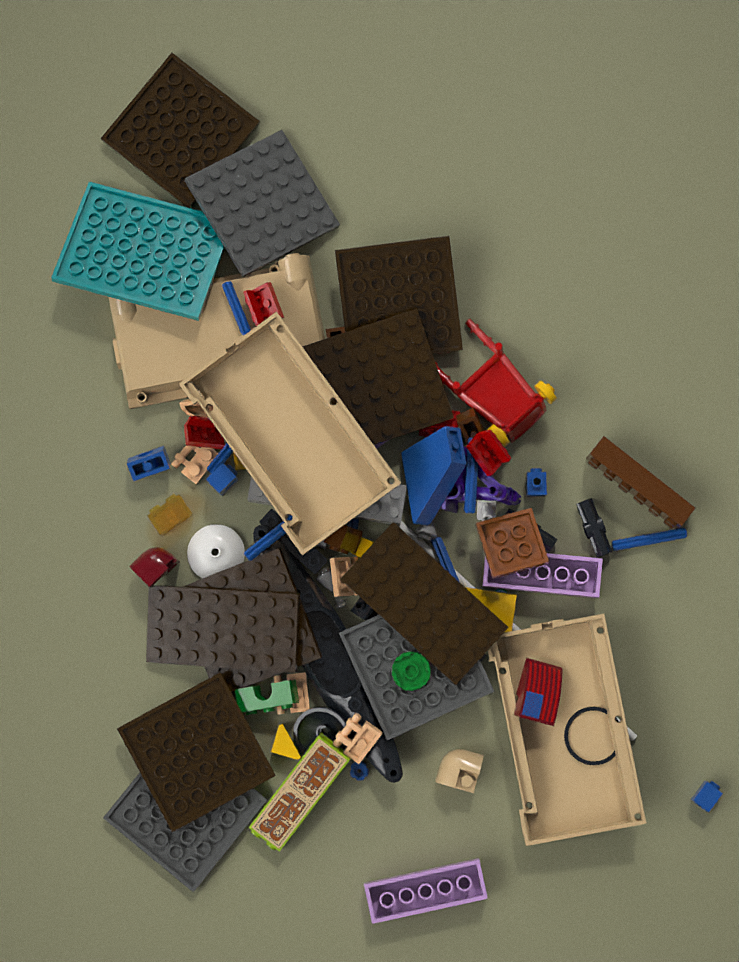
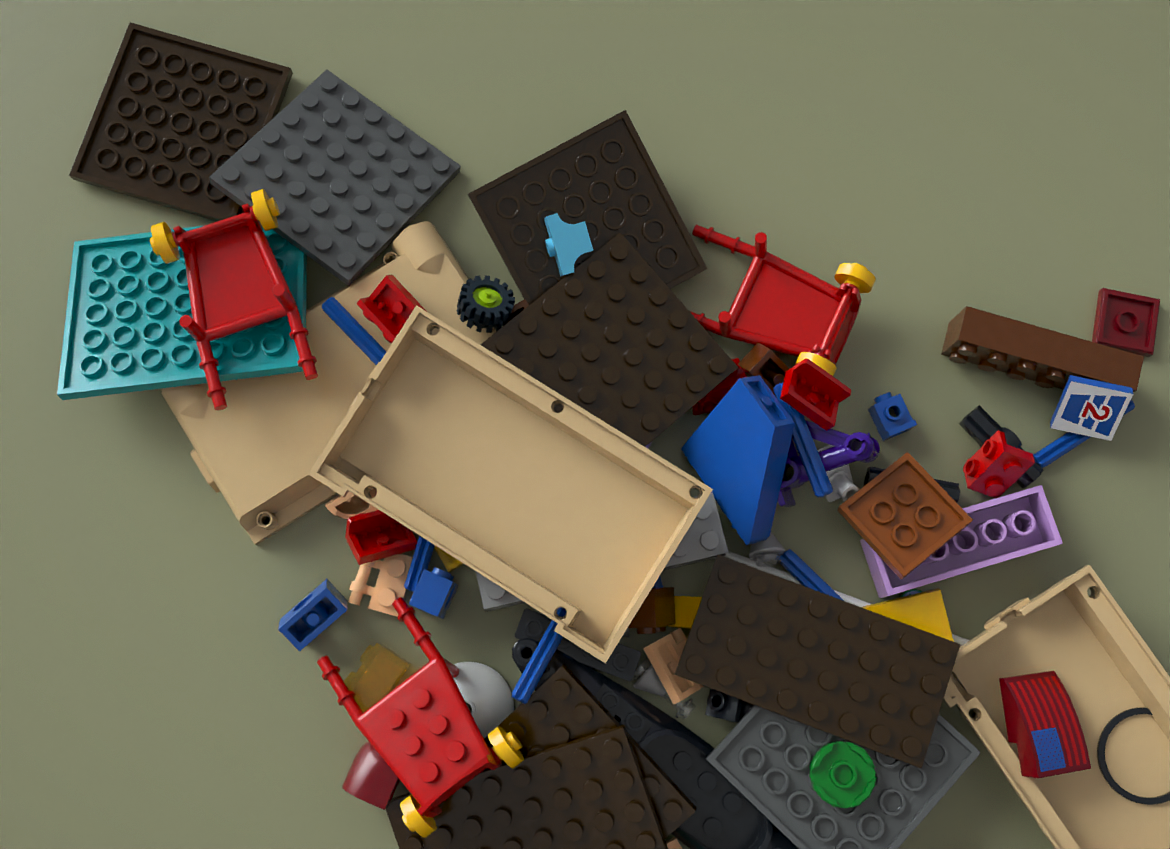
camera: 25 degrees left, 5 degrees down
(176, 253) = (233, 283): none -> red piece
(188, 552) = (426, 731): none -> red piece
(318, 321) = (485, 303): none -> black wheel
(381, 303) = (566, 242): none -> medium azure brick
(582, 538) = (996, 466): none -> red bracket
(653, 525) = (1091, 407): none -> tile
(707, 483) = (1126, 321): none -> dark red tile

